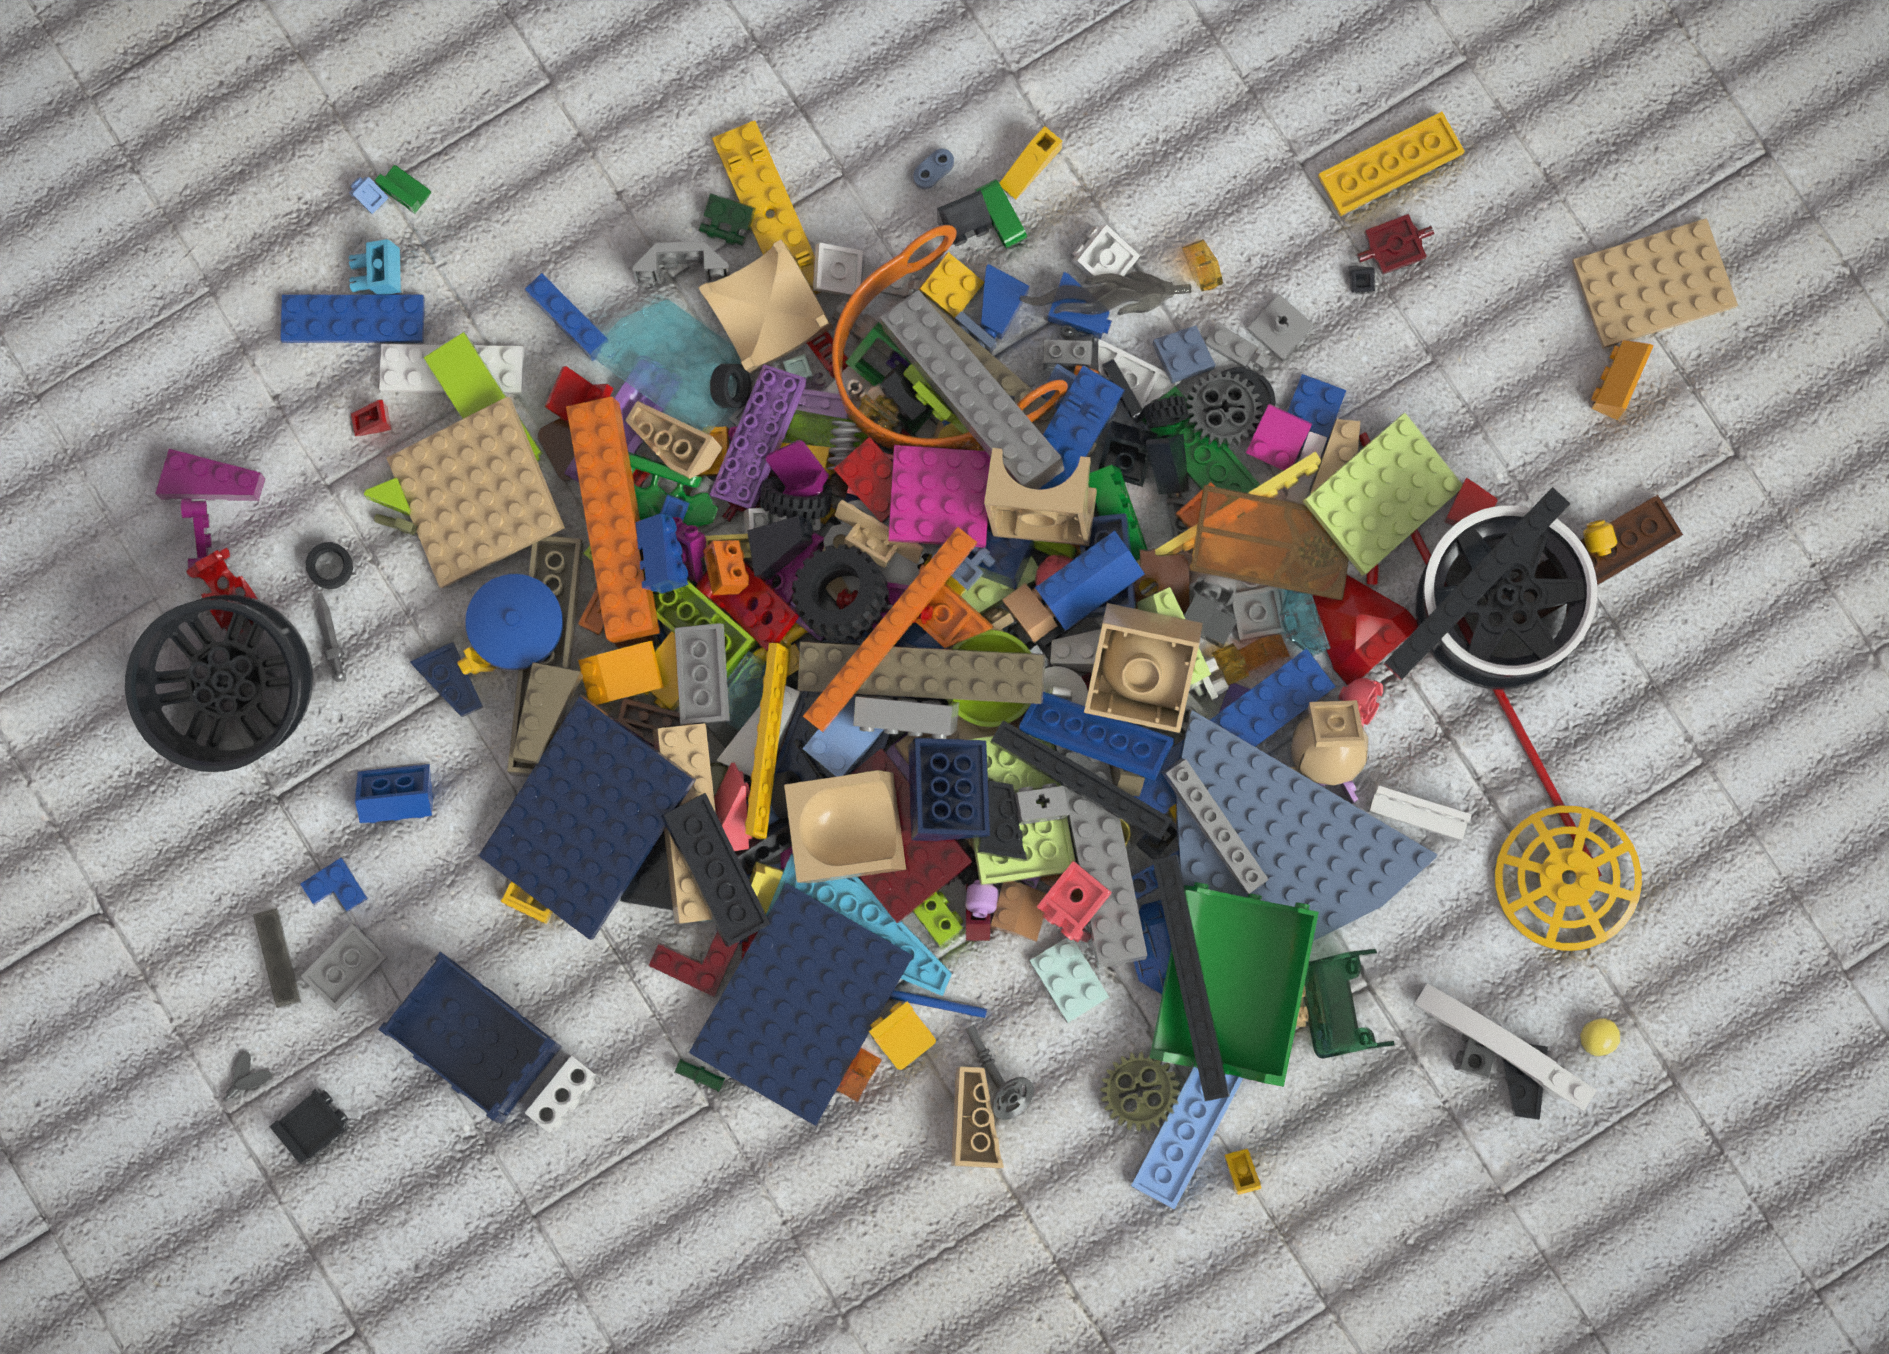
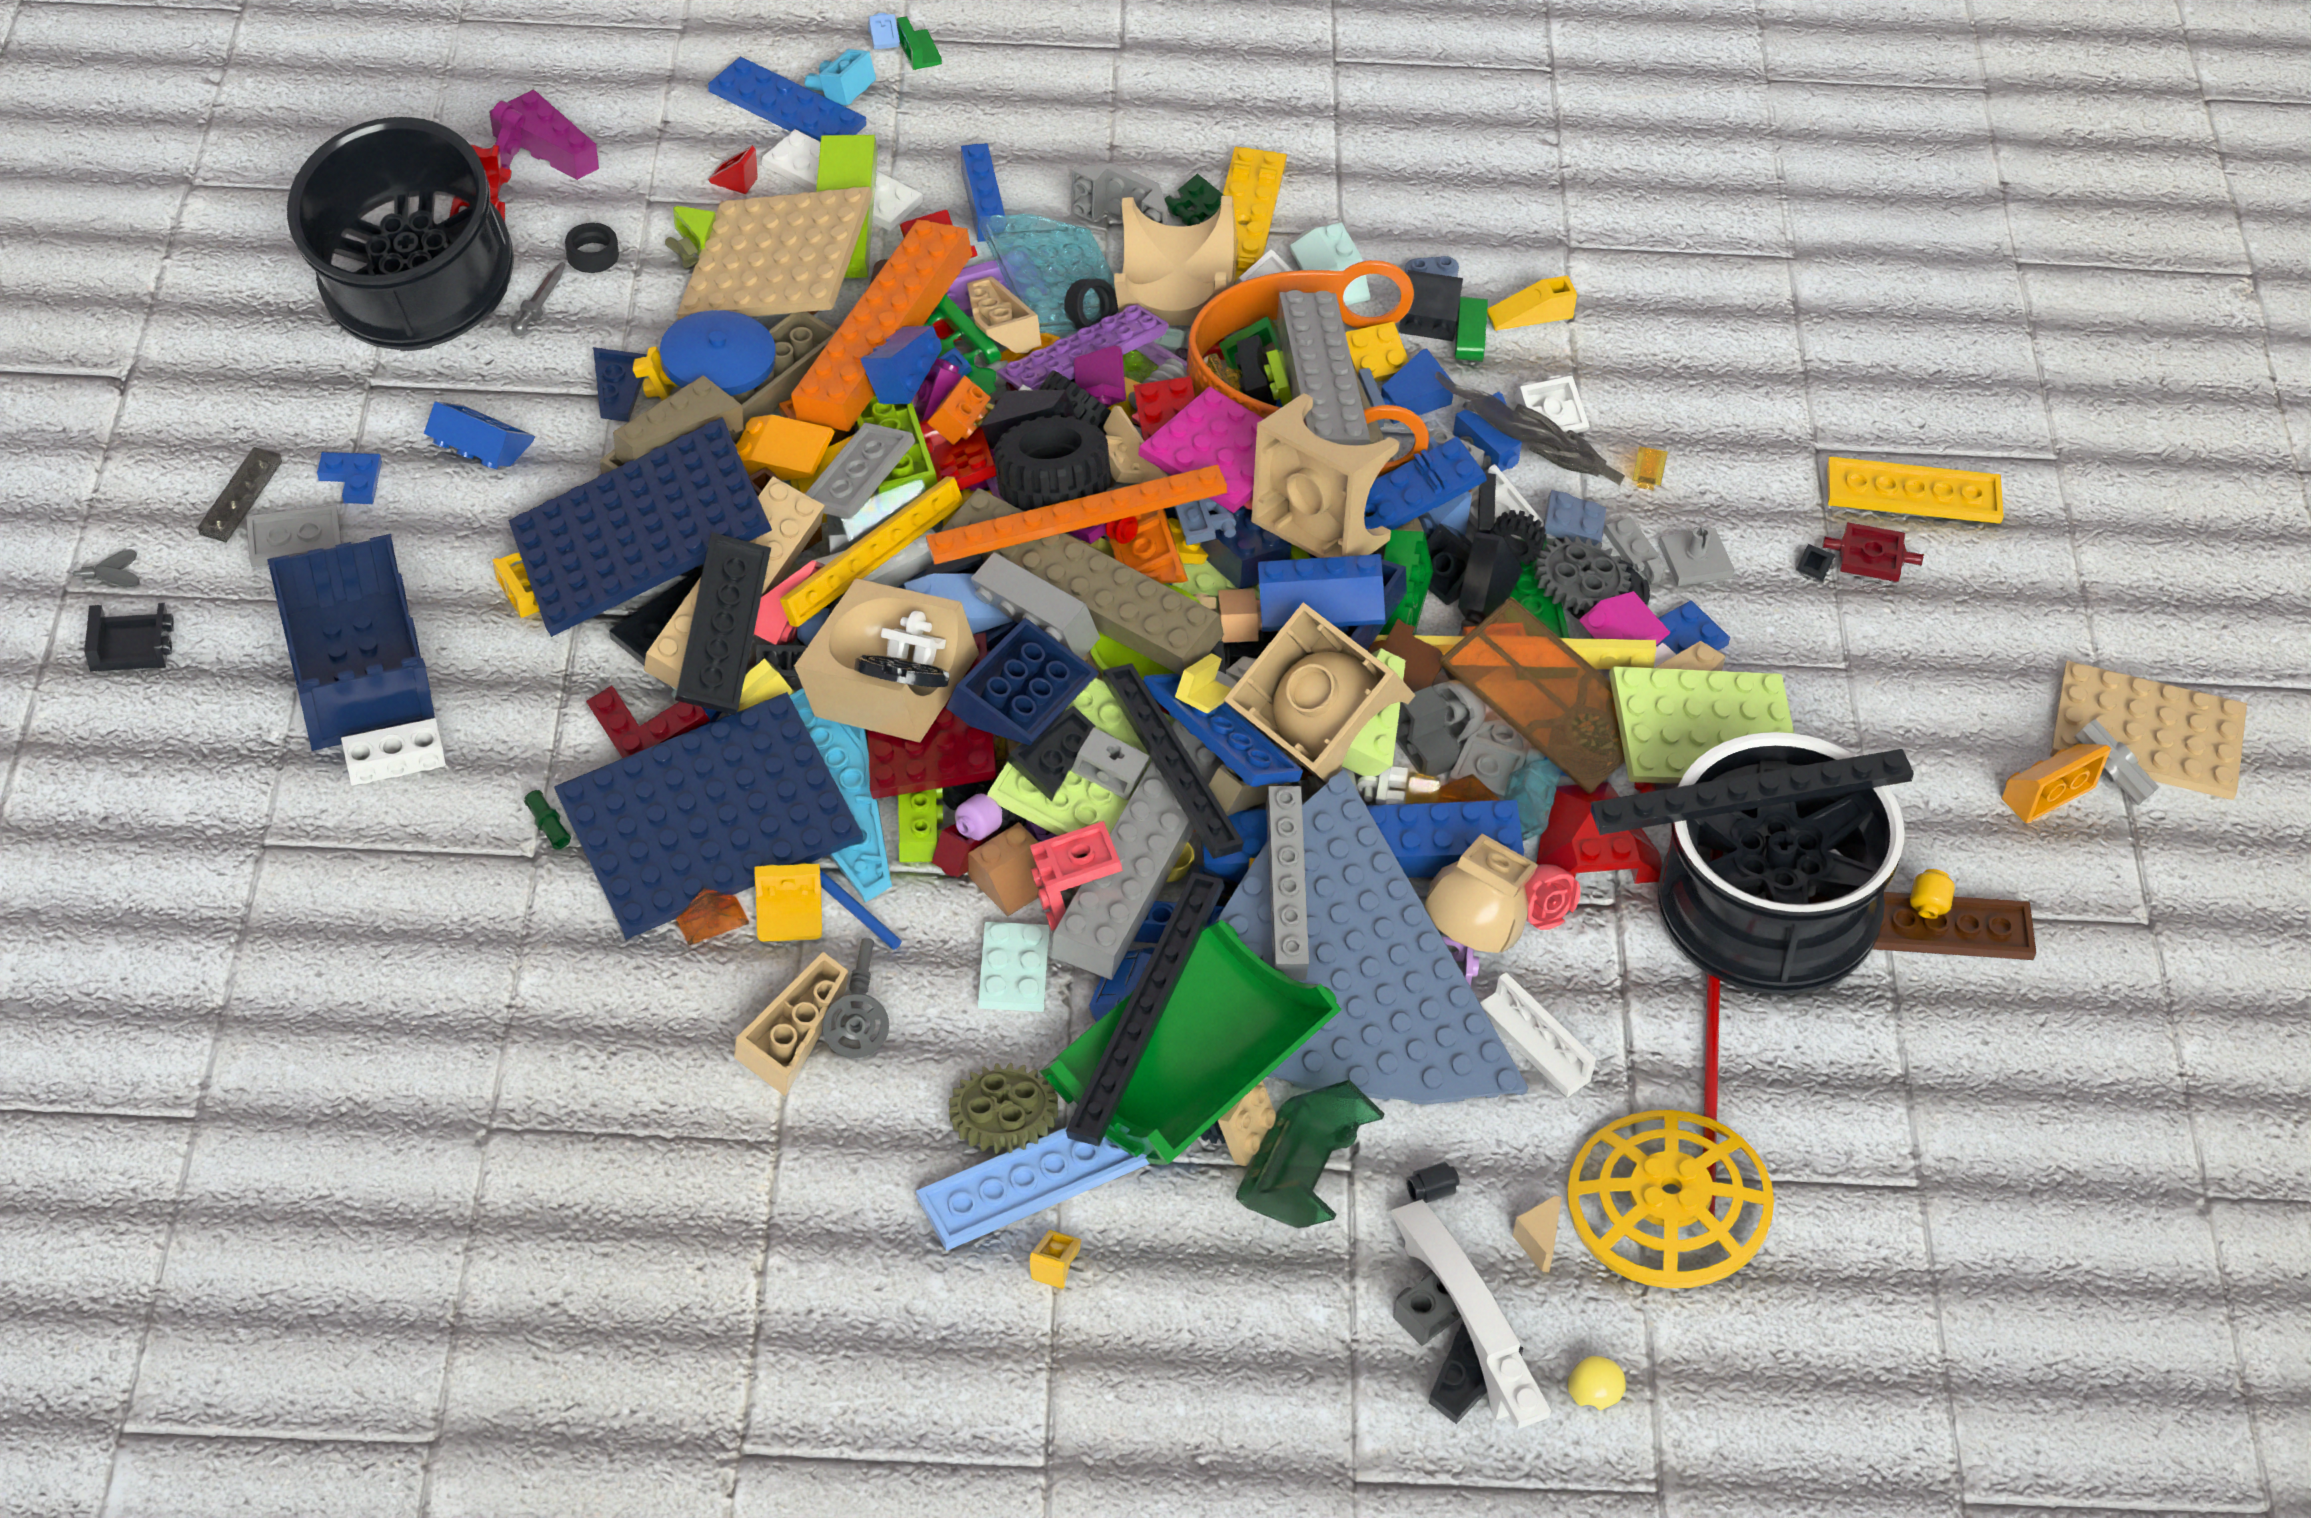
camera: 30 degrees right, 30 degrees down
(857, 806) = (900, 639): none -> white hips
(858, 213) = (1332, 250): none -> light aqua wedge
(874, 845) = (901, 671): none -> black tile
(1064, 709) = (1200, 687): none -> light yellow panel
(1425, 966) = (1432, 1182): none -> black brick
(1508, 957) = (1537, 1231): none -> tan slope
(1655, 335) = (2120, 764): none -> light grey piece

